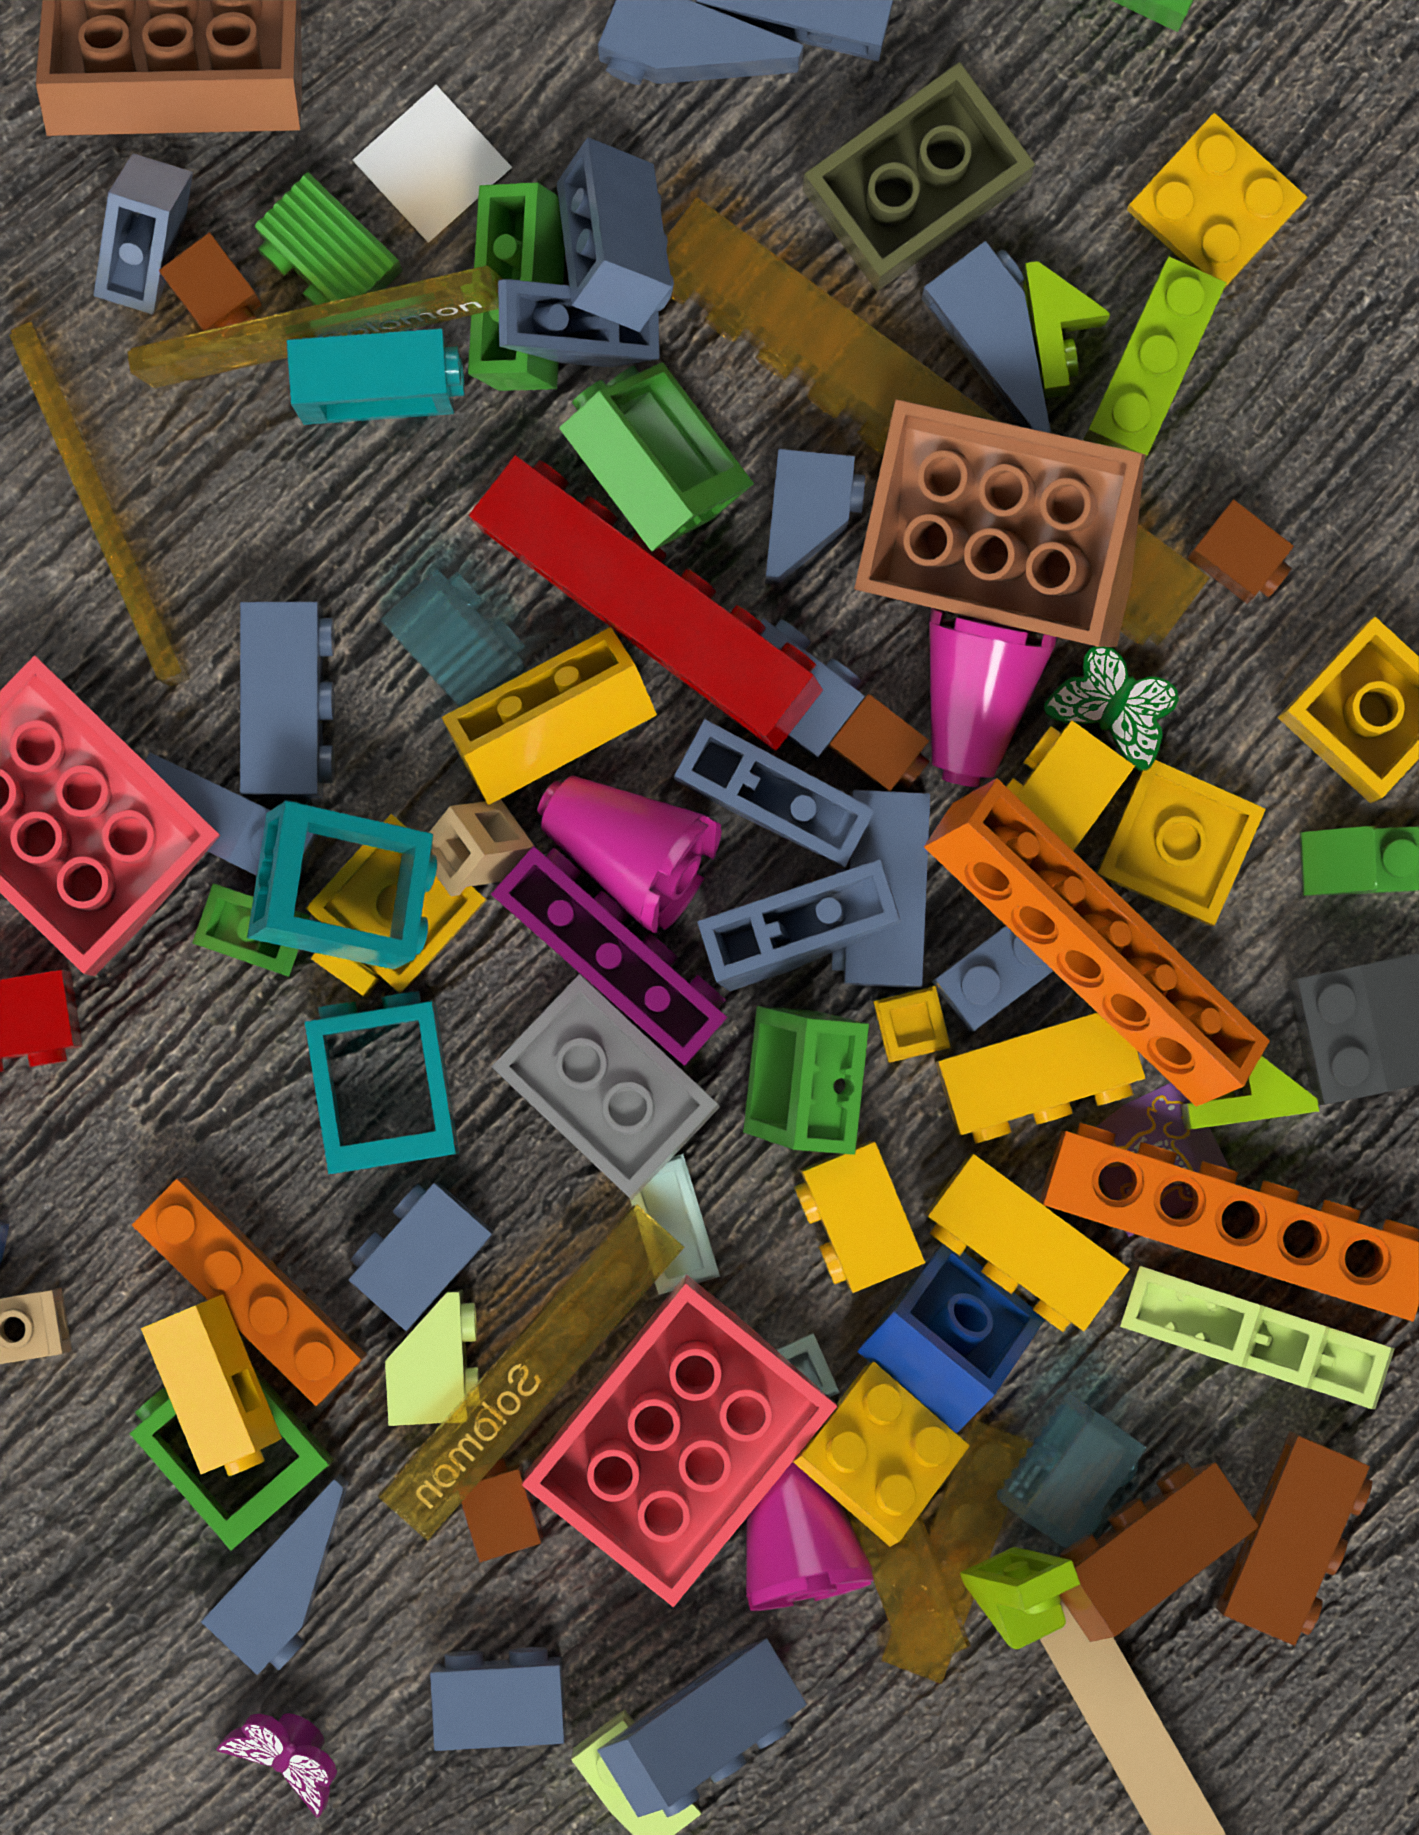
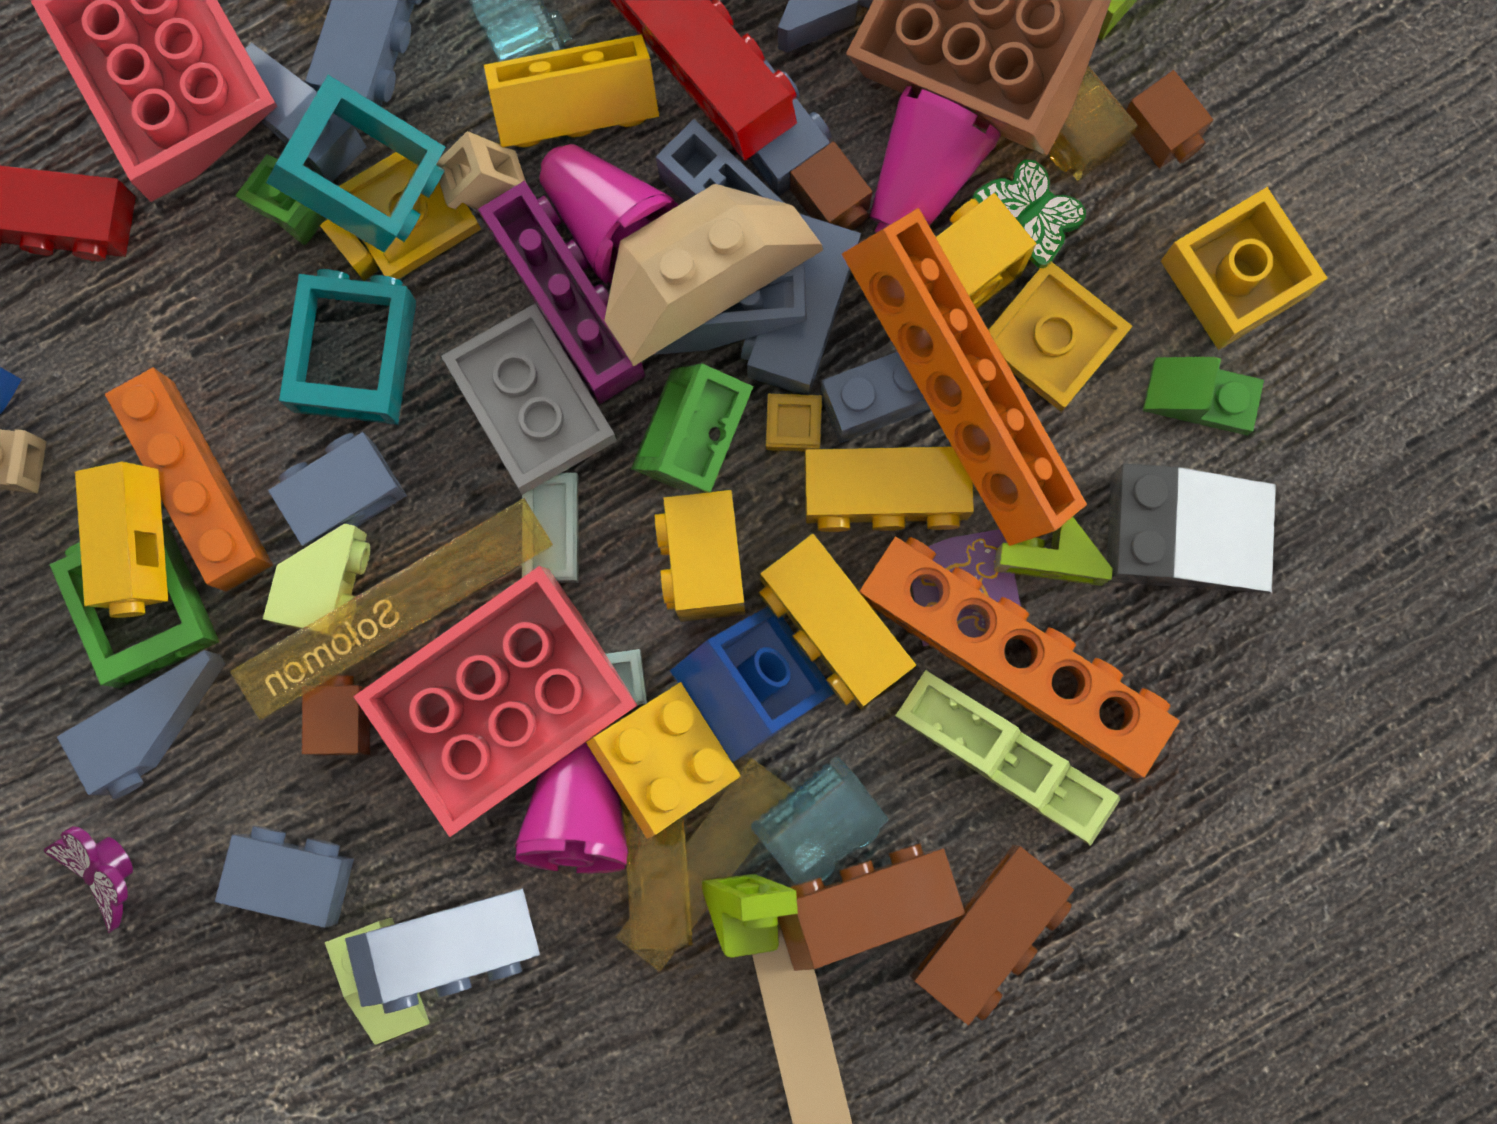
camera: 20 degrees right, 5 degrees down
(764, 891) = (700, 264): none -> tan wedge

